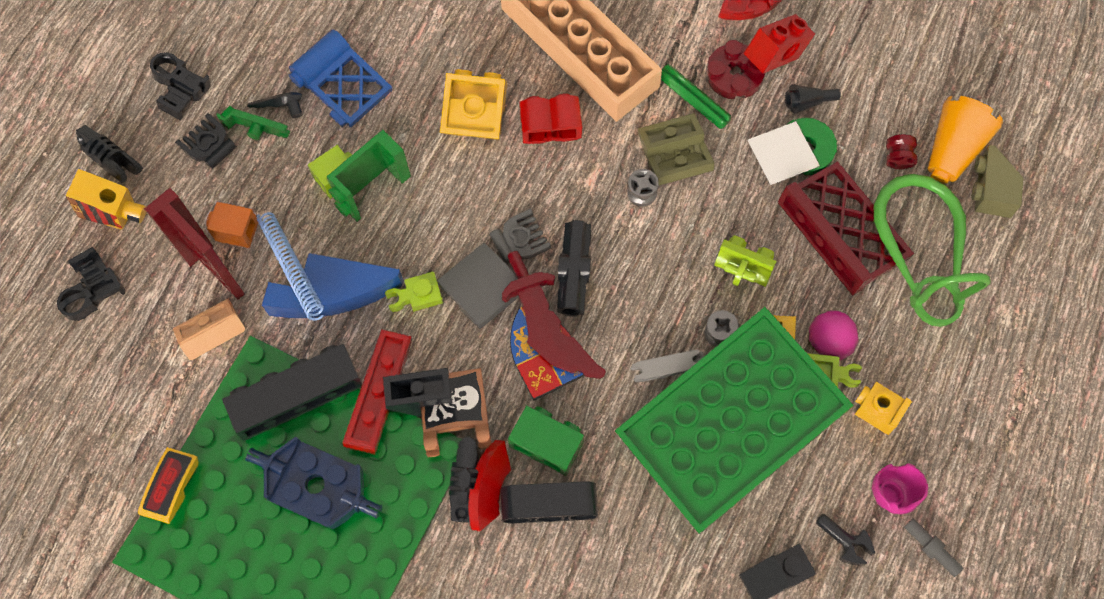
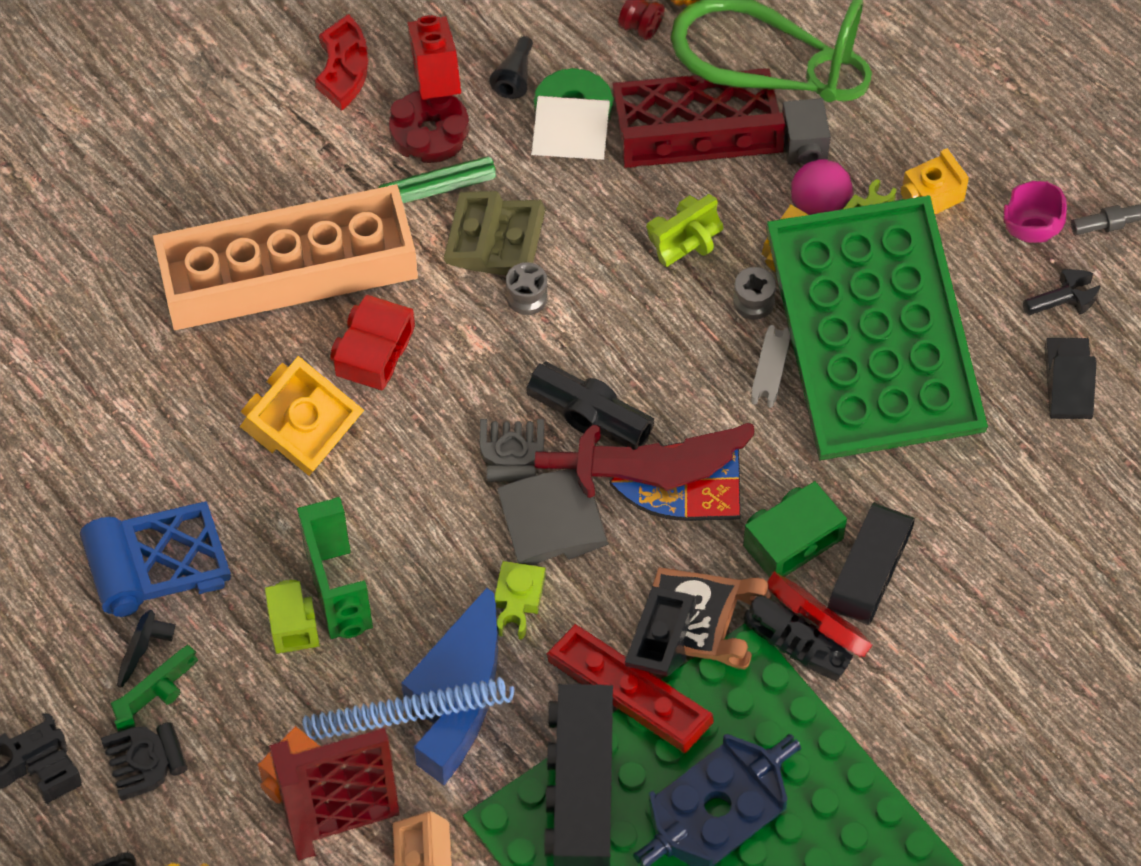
camera: 65 degrees left, 10 degrees down
(872, 300) = (806, 131): none -> dark grey brick

